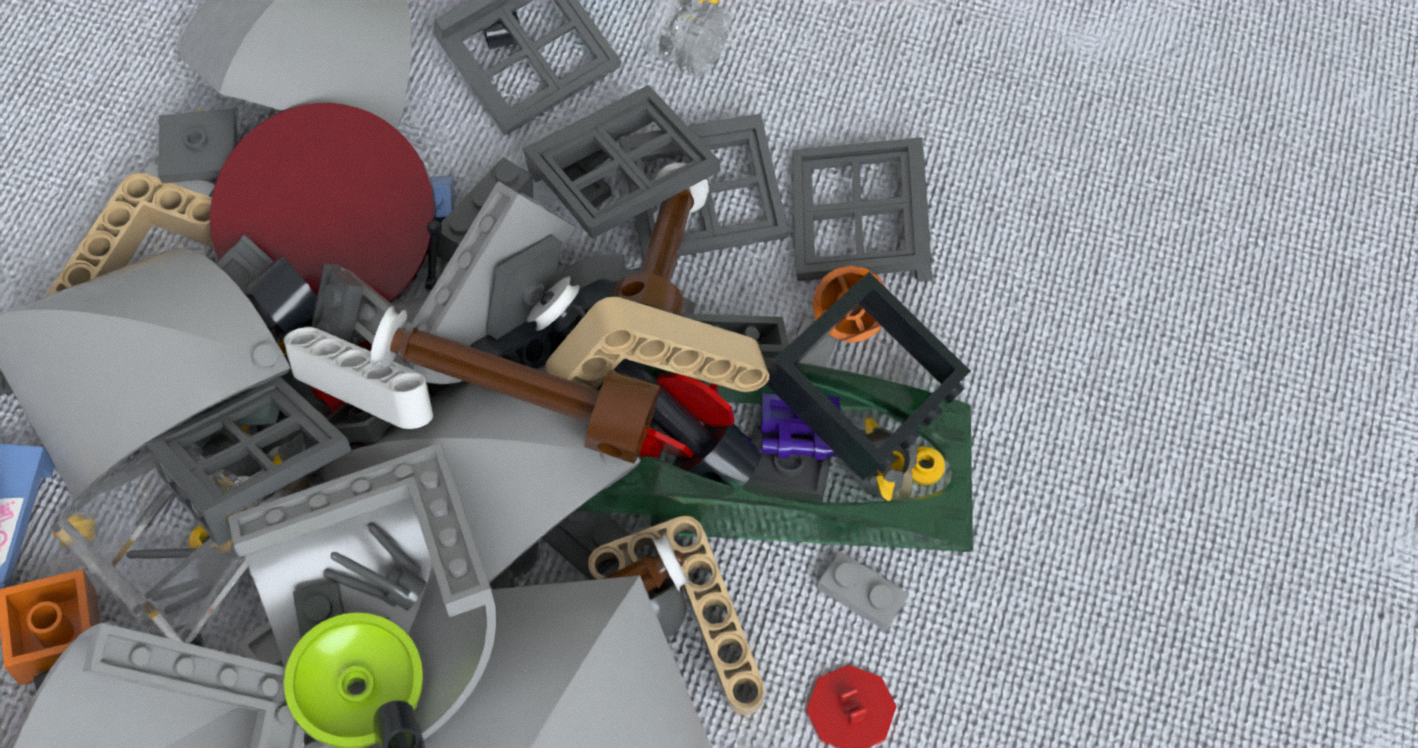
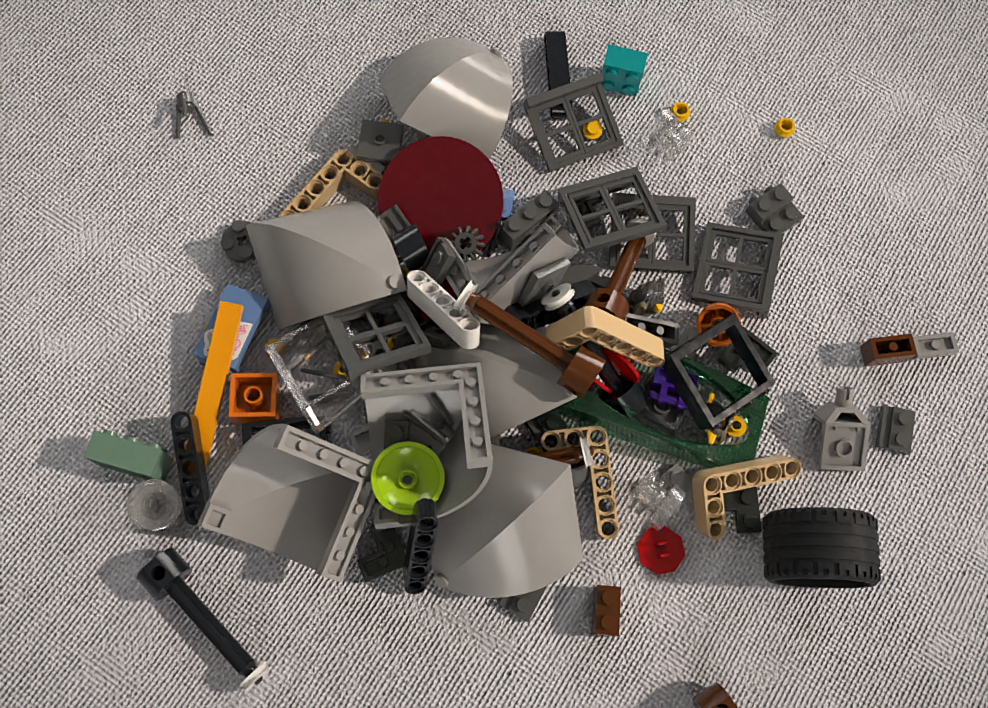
camera: 10 degrees right, 10 degrees up
(384, 258) = (467, 235): none -> dark grey gear
(563, 51) = (592, 130): none -> yellow plate
(721, 287) = (648, 298): none -> dark grey hair
(817, 618) = (656, 499): none -> clear wheel
(892, 359) = (732, 361): none -> pearl dark grey plate
(898, 106) = (774, 210): none -> dark grey plate
(949, 549) = (778, 469): none -> tan beam
(971, 589) = (746, 509): none -> pearl dark grey plate
(1110, 431) = (843, 433): none -> light grey plate
(1120, 620) = (821, 548): none -> black tyre
(1145, 278) = (888, 350): none -> reddish brown brick
(1197, 405) = (895, 429): none -> dark grey plate
(1219, 256) = (935, 345): none -> light grey plate

